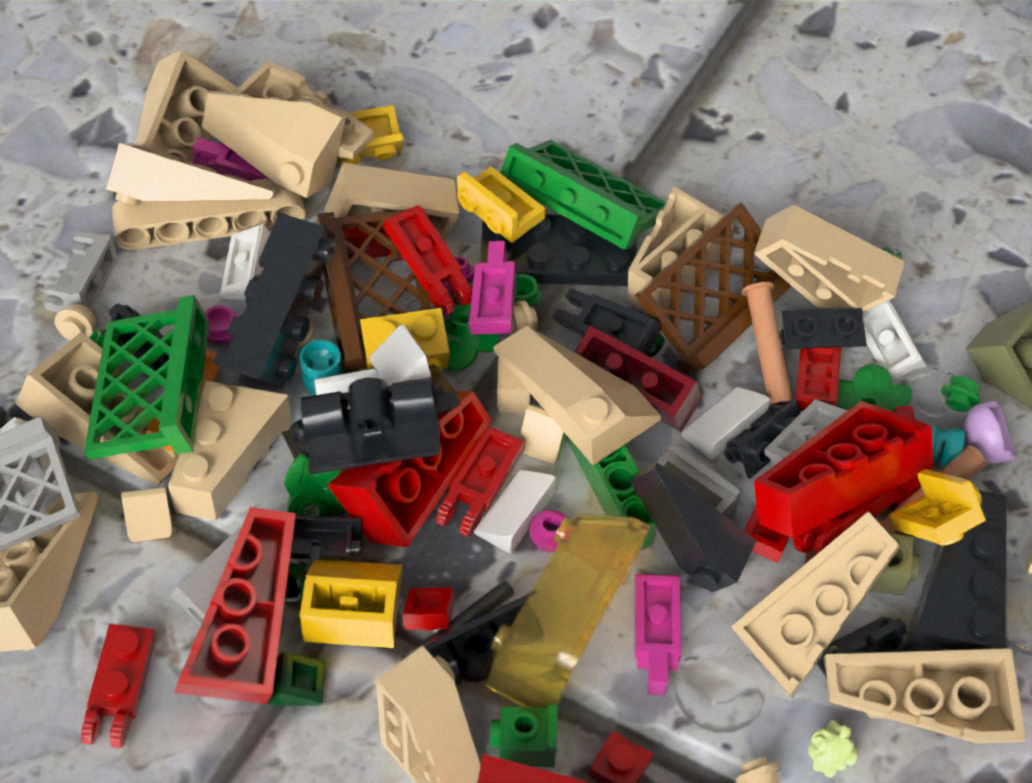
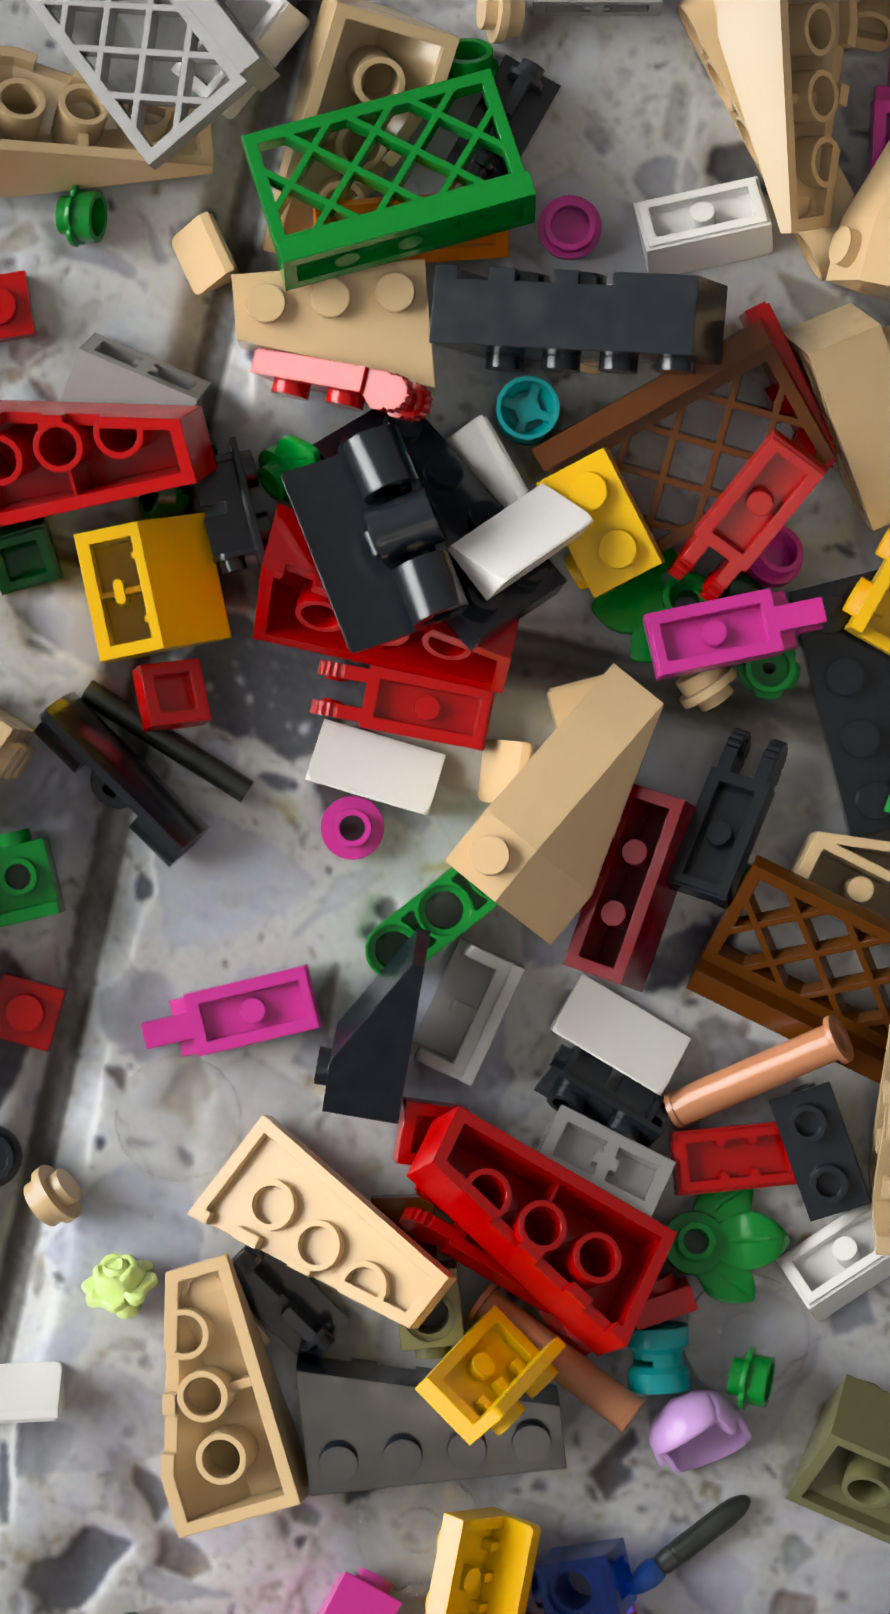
camera: 75 degrees right, 35 degrees up
(89, 580) = (82, 216): none -> green plate
(262, 445) = (344, 384): none -> hinge
(565, 607) = (190, 900): clear yellow windscreen -> none

